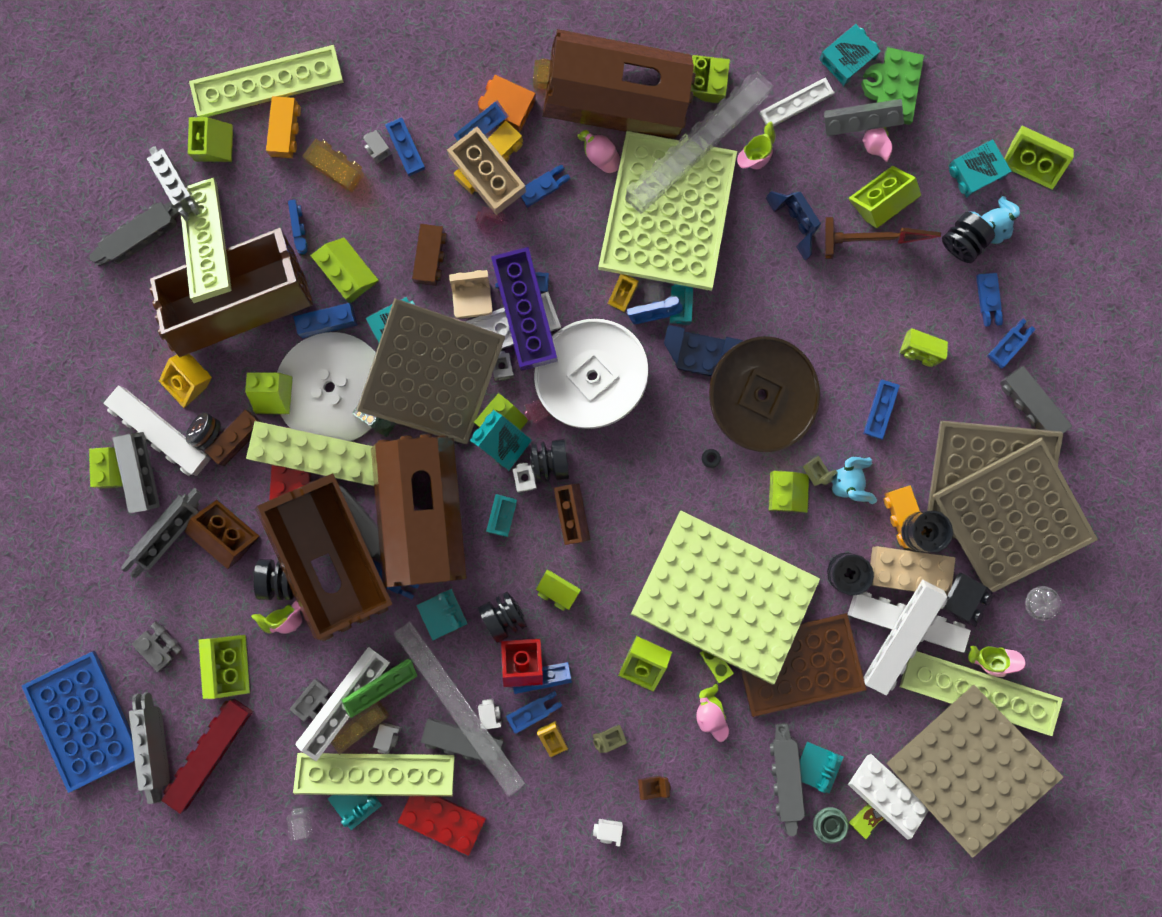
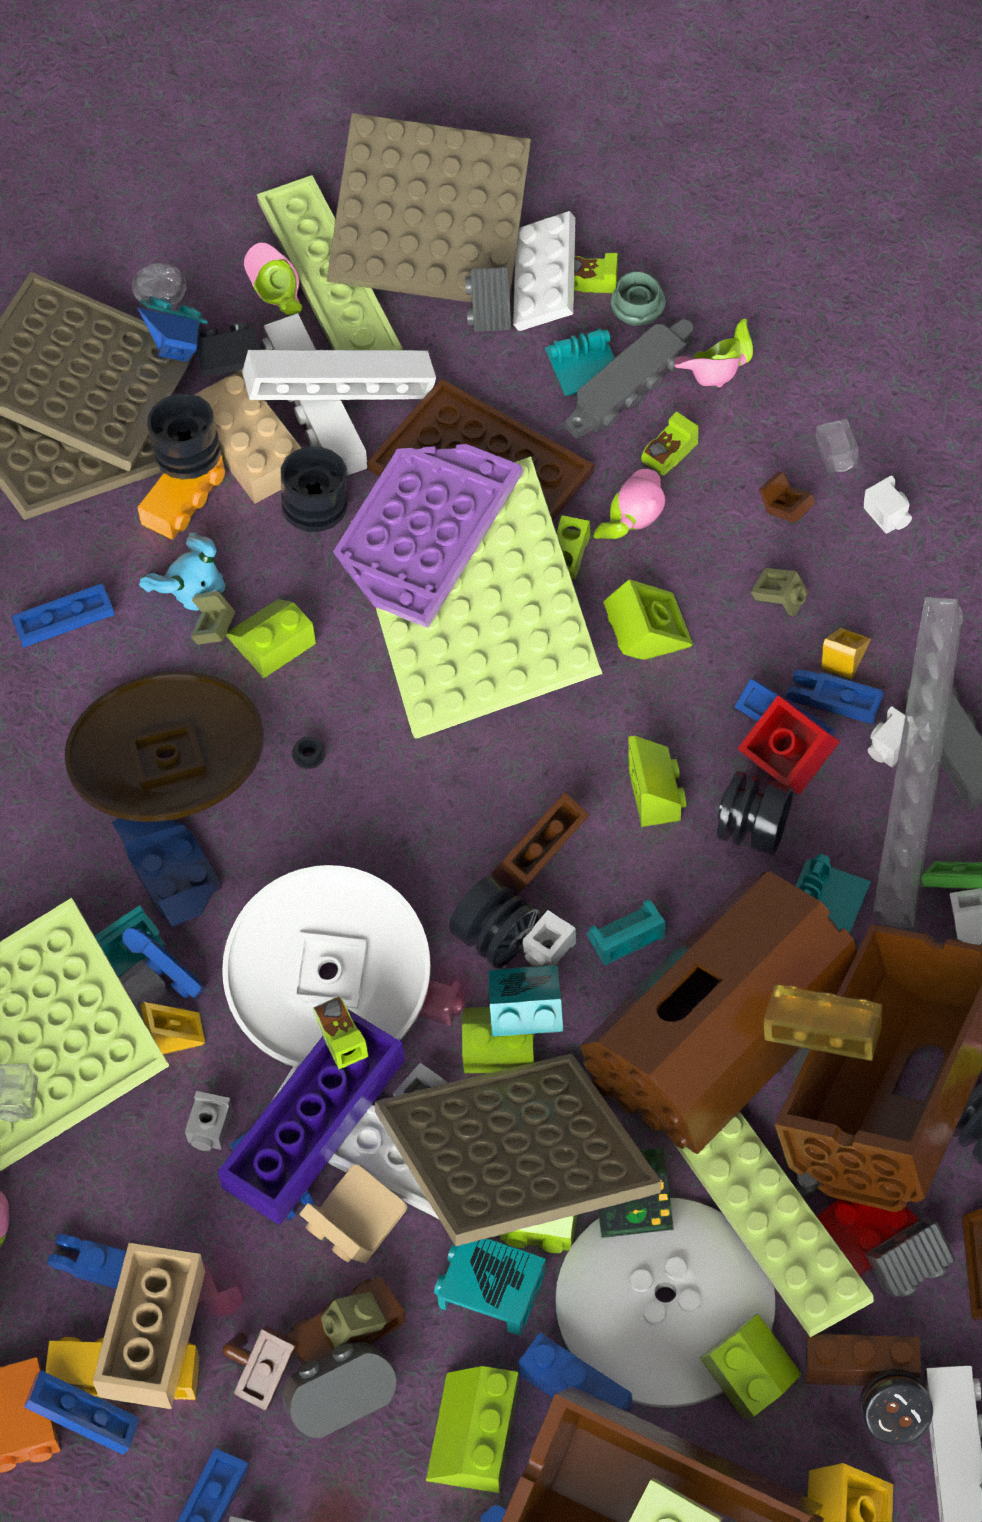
camera: 130 degrees left, 25 degrees down
(256, 491) = (910, 1257): none -> dark grey brick
(354, 532) = (823, 1022): none -> clear yellow brick
(402, 228) = (338, 1389): none -> dark grey brick
(422, 253) = (352, 1317): none -> olive bracket
(438, 208) = (263, 1365): none -> plate
(544, 342) = (340, 1032): none -> lime leg
(569, 279) = (211, 1134): none -> light grey brick
(661, 839) = (837, 446): none -> clear brick
(732, 763) = (671, 444): none -> lime leg
(759, 830) = (720, 361): none -> hair
(779, 602) = (424, 526): none -> medium lavender plate
(892, 753) = (490, 299): none -> dark grey brick
(995, 576) = (172, 334): none -> blue slope
(1014, 593) = (183, 311): none -> teal hinge

